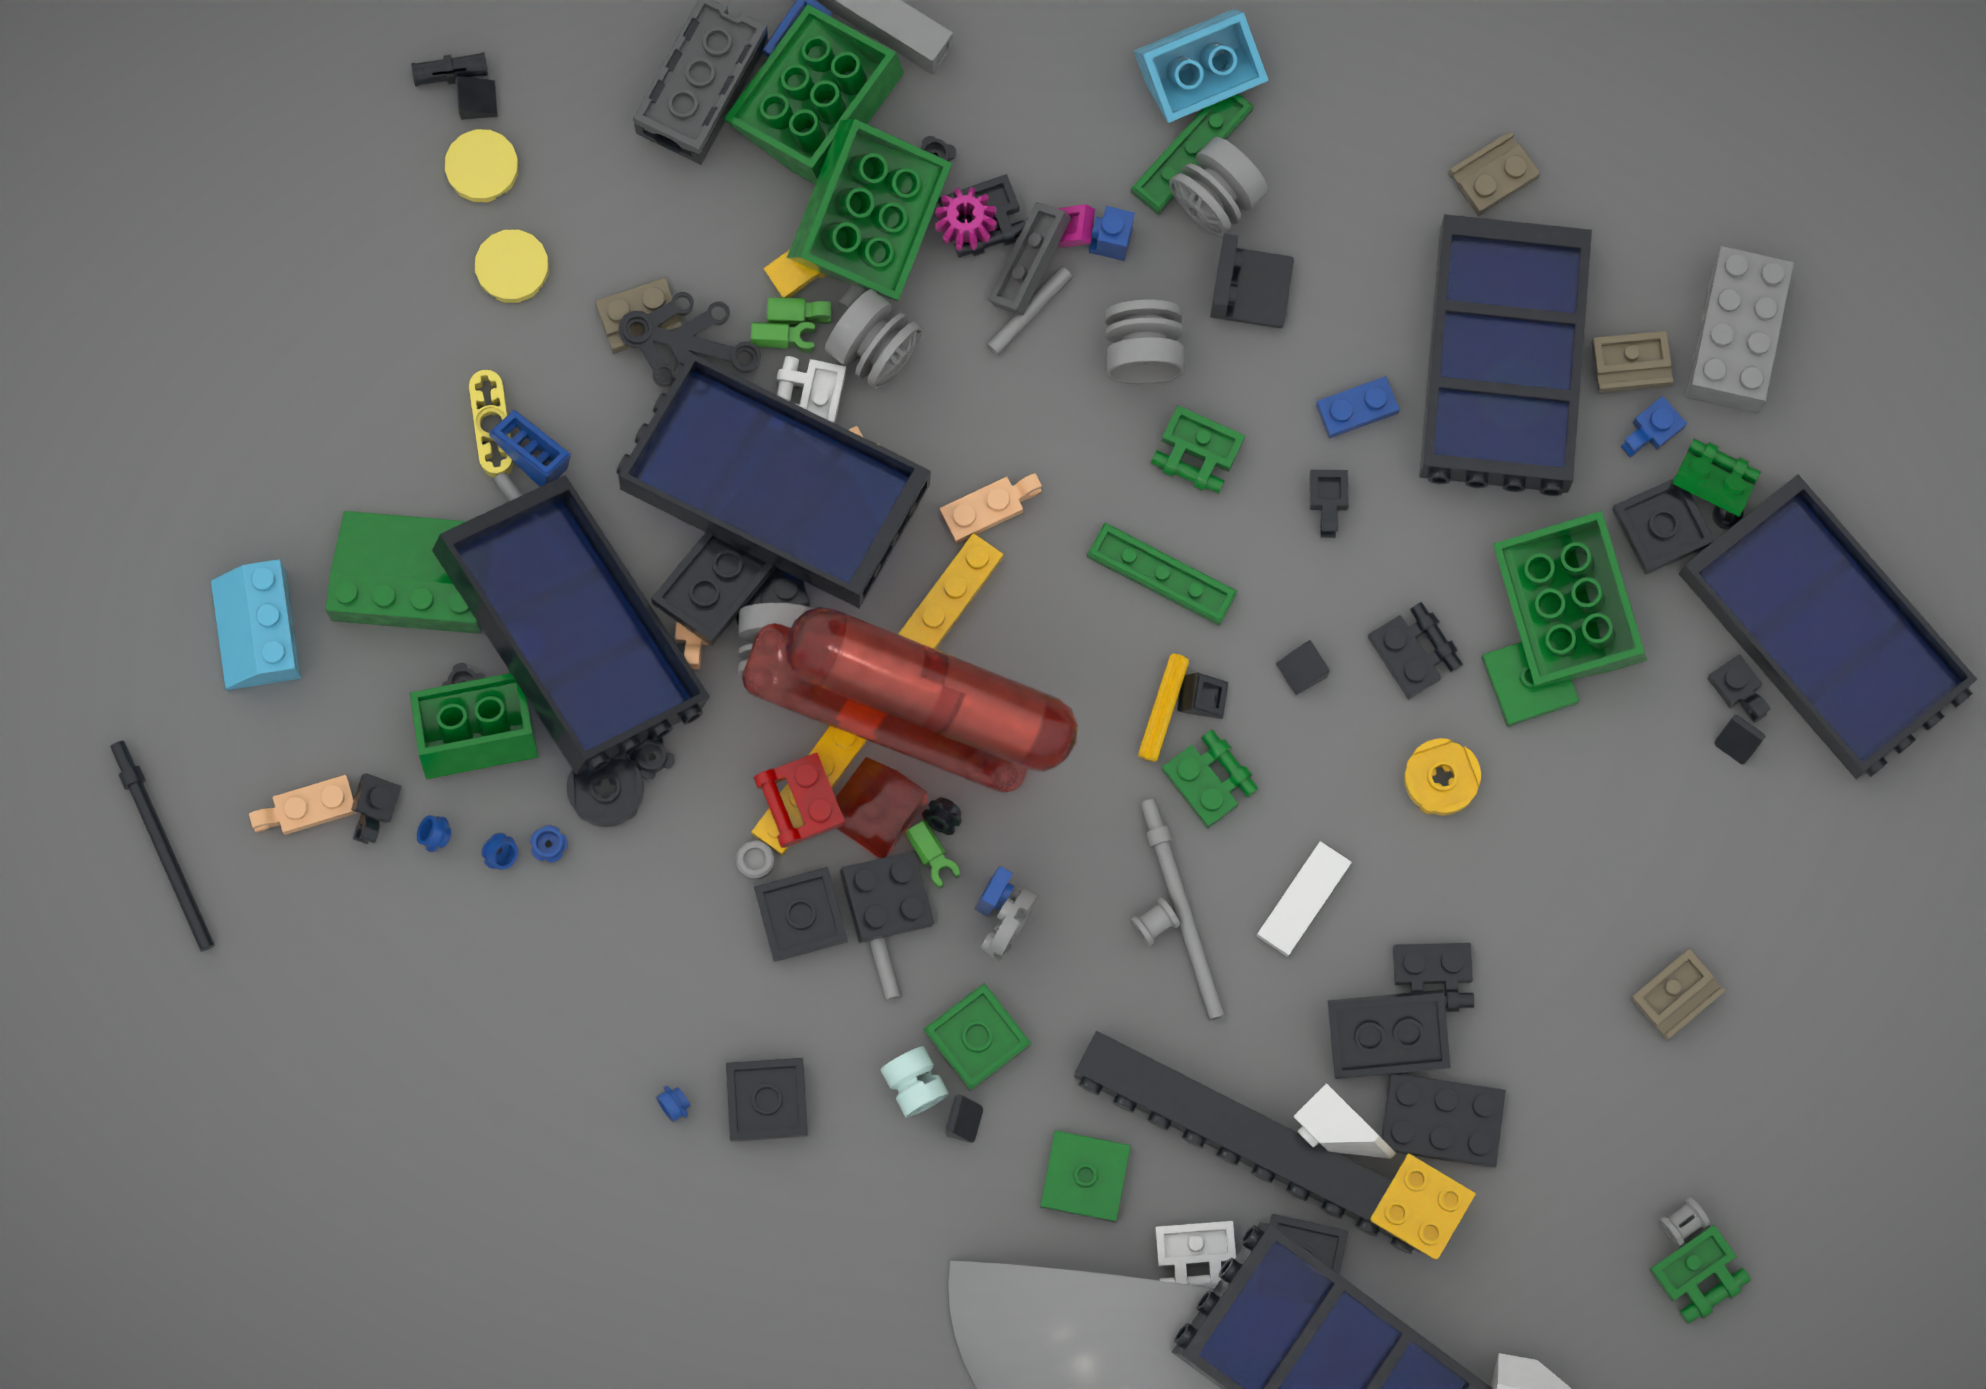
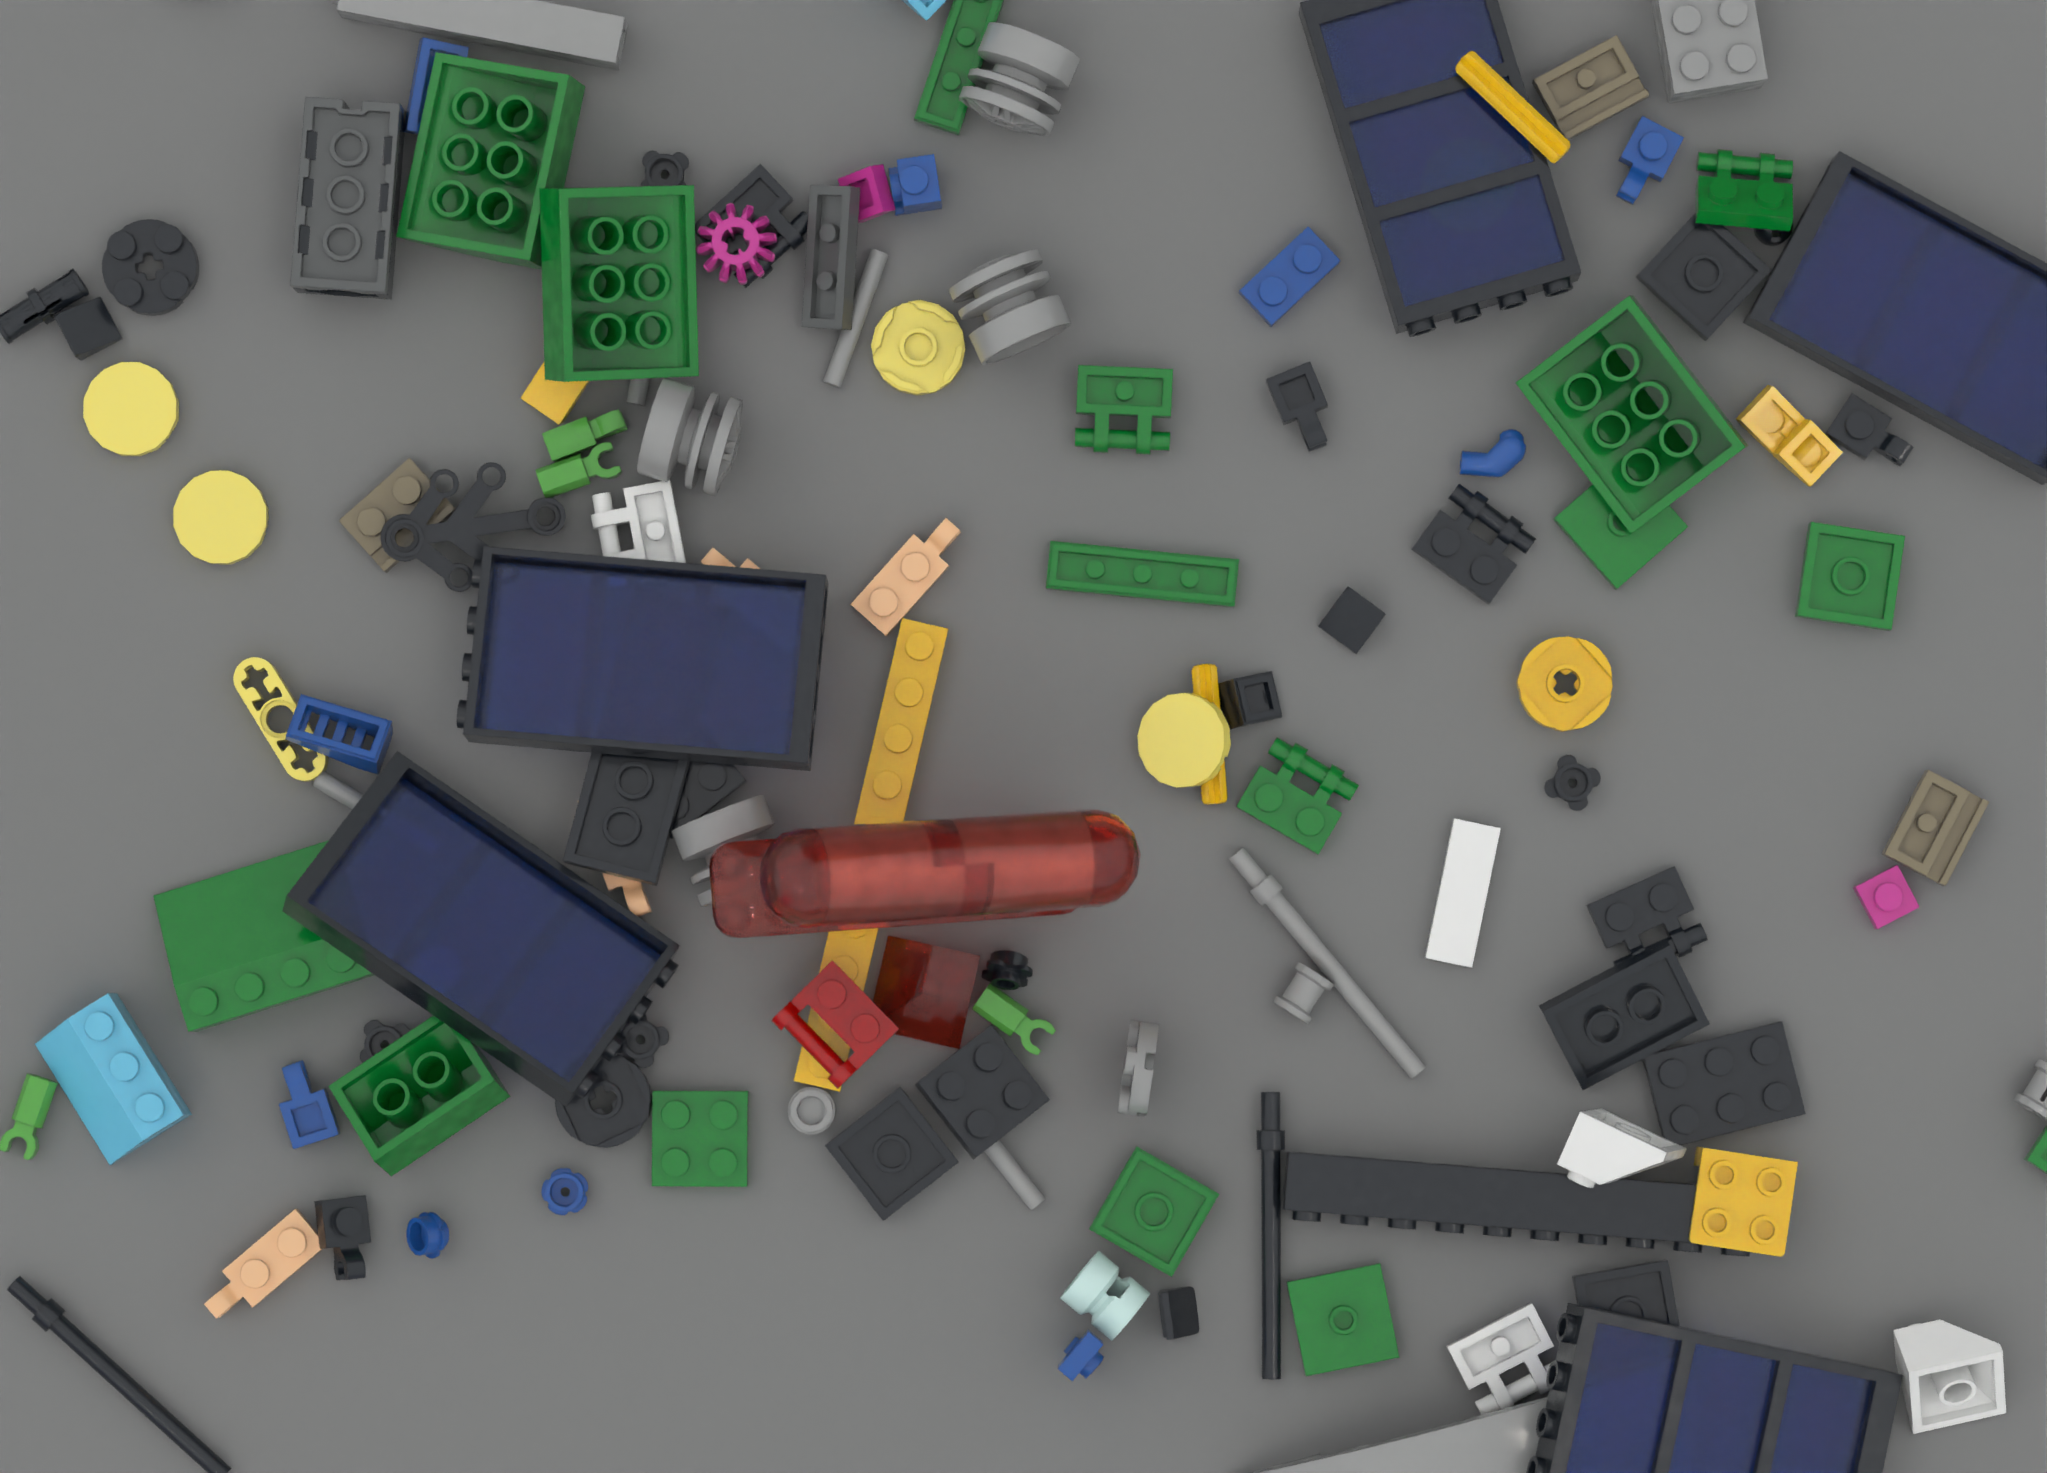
camera: 20 degrees left, 10 degrees up
(184, 628) = (30, 1113): none -> bright green bar
(385, 709) = (308, 1113): none -> blue plate
(505, 856) = (513, 1225): blue plate -> none
(530, 55) = (172, 283): none -> black plate
(664, 846) = (700, 1138): none -> green plate
(673, 1103) = (839, 1432): blue plate -> none
(766, 1099) = (943, 1384): black plate -> none
(879, 1118) = (1082, 1356): none -> blue plate
(996, 892) = (1107, 1039): blue plate -> none
(1066, 349) = (918, 347): none -> light yellow tile
(1085, 1022) = (1270, 1142): none -> black bar
(1142, 702) = (1183, 740): none -> light yellow tile
(1251, 285) = (1106, 180): black bracket -> none
(1421, 841) = (1585, 778): none -> black plate
(1457, 597) = (1498, 460): none -> blue arm
(1569, 344) = (1512, 106): none -> yellow axle
(1620, 1031) = (1886, 897): none -> dark pink plate
(1680, 667) = (1788, 435): none -> yellow slope
(1686, 785) = (1850, 576): none -> green plate
(1739, 739) = (1890, 496): black slope -> none

